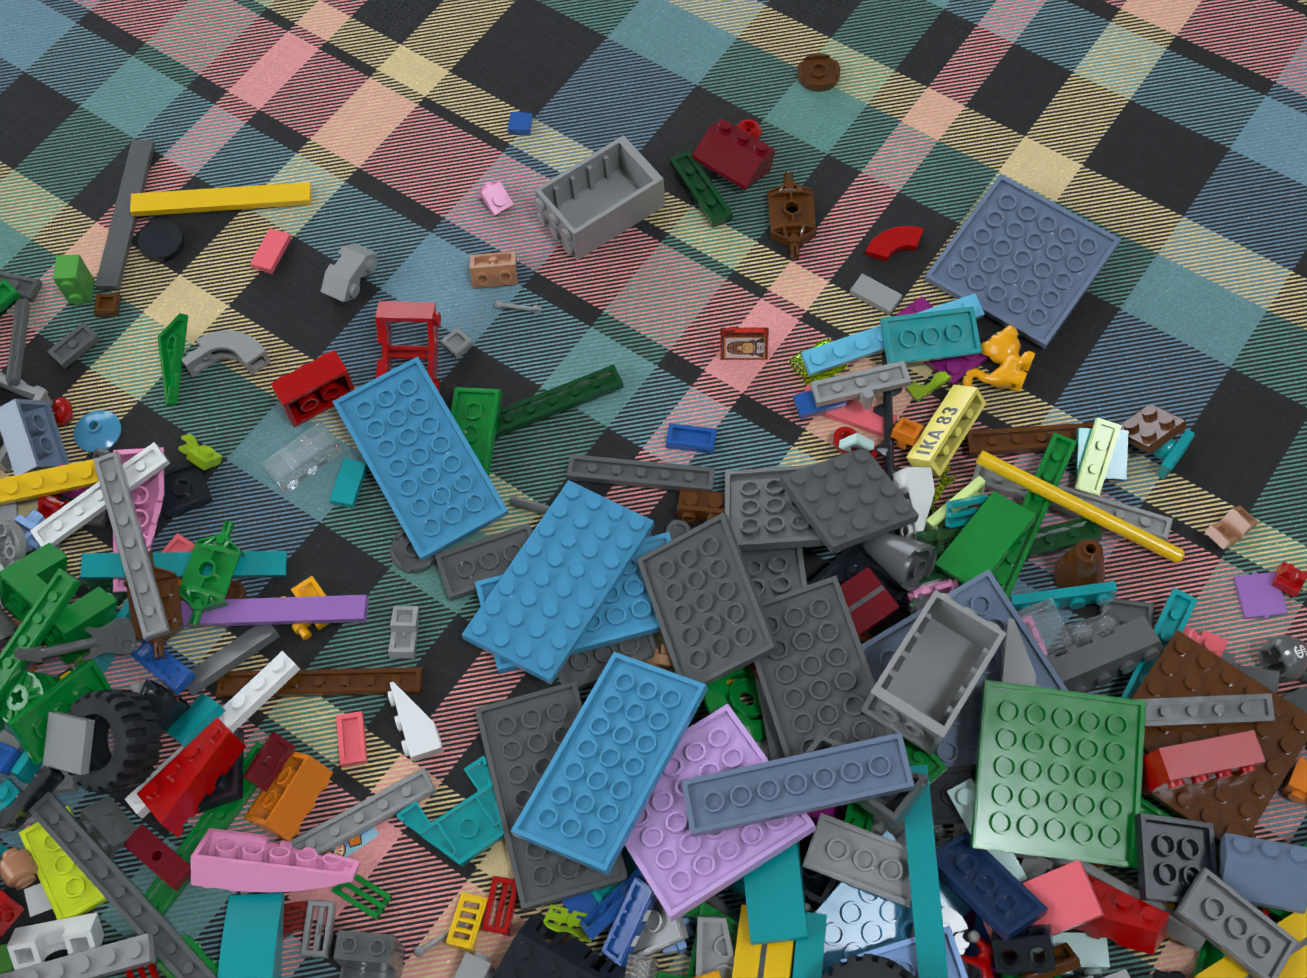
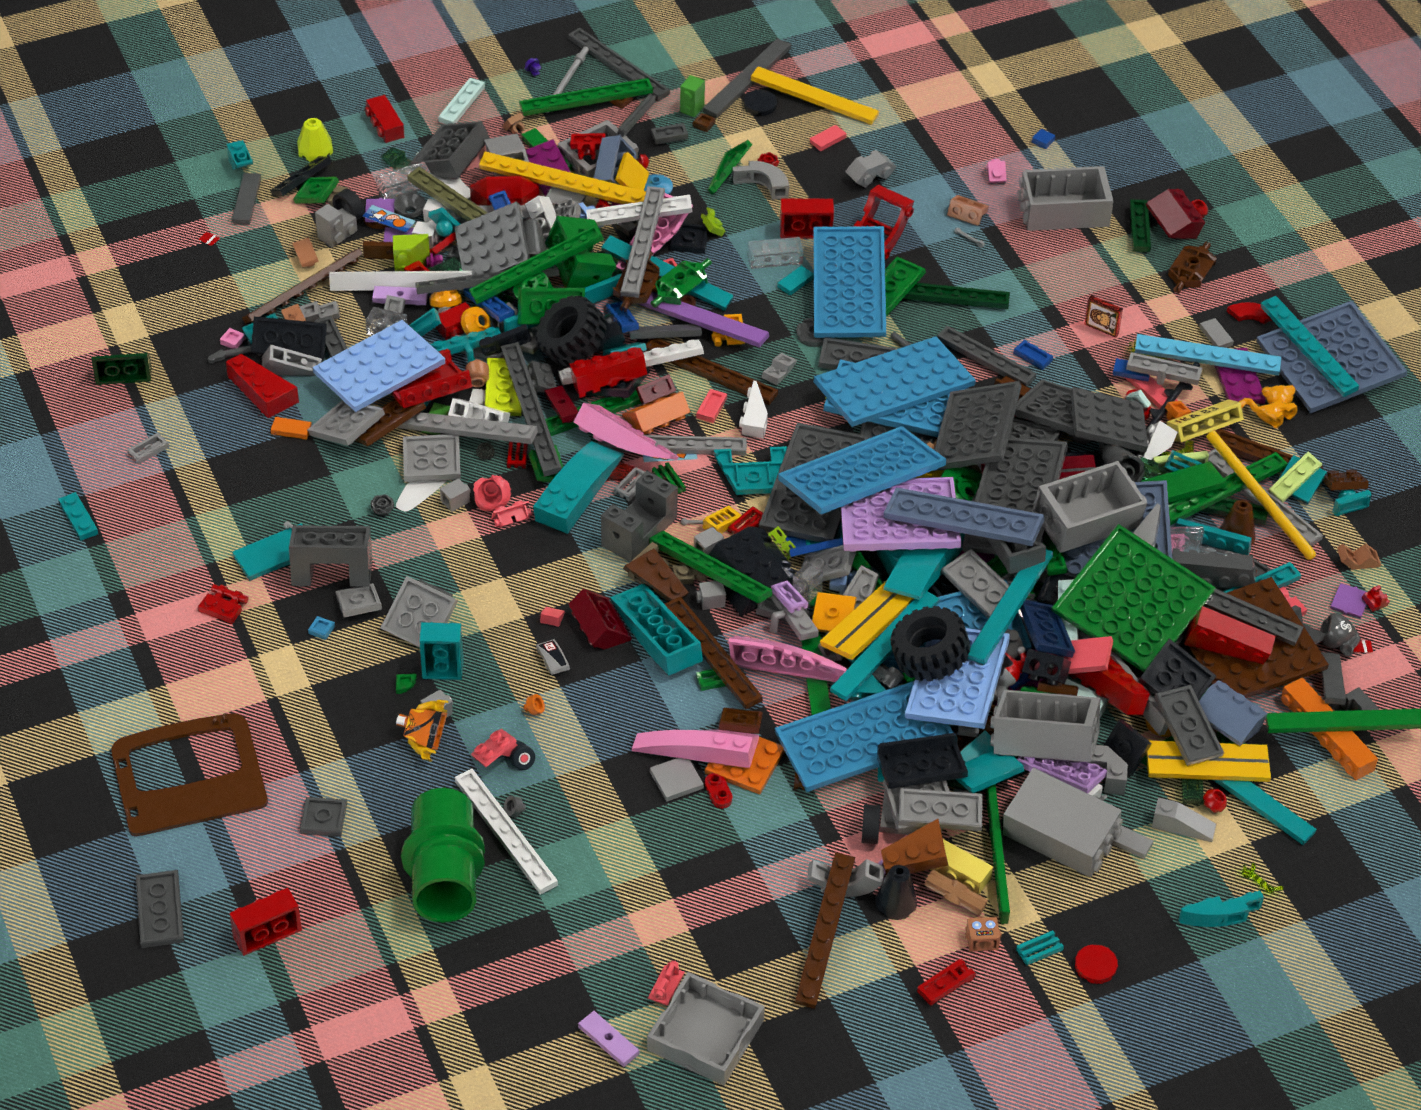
camera: 25 degrees right, 15 degrees down
(60, 439) = (631, 173): none -> yellow tile
(68, 743) = (547, 317): light grey tile -> none
(115, 638) = (604, 283): dark grey piece -> none
(217, 317) = (769, 158): none -> red plate
(456, 343) = (915, 239): light grey tile -> none
(629, 922) = (822, 551): blue plate -> none
(818, 72) = (1274, 197): reddish brown tile -> none
(922, 391) = (1204, 397): lime piece -> none
(931, 335) = (1232, 364): teal tile -> none
(994, 260) = (1310, 346): none -> teal plate

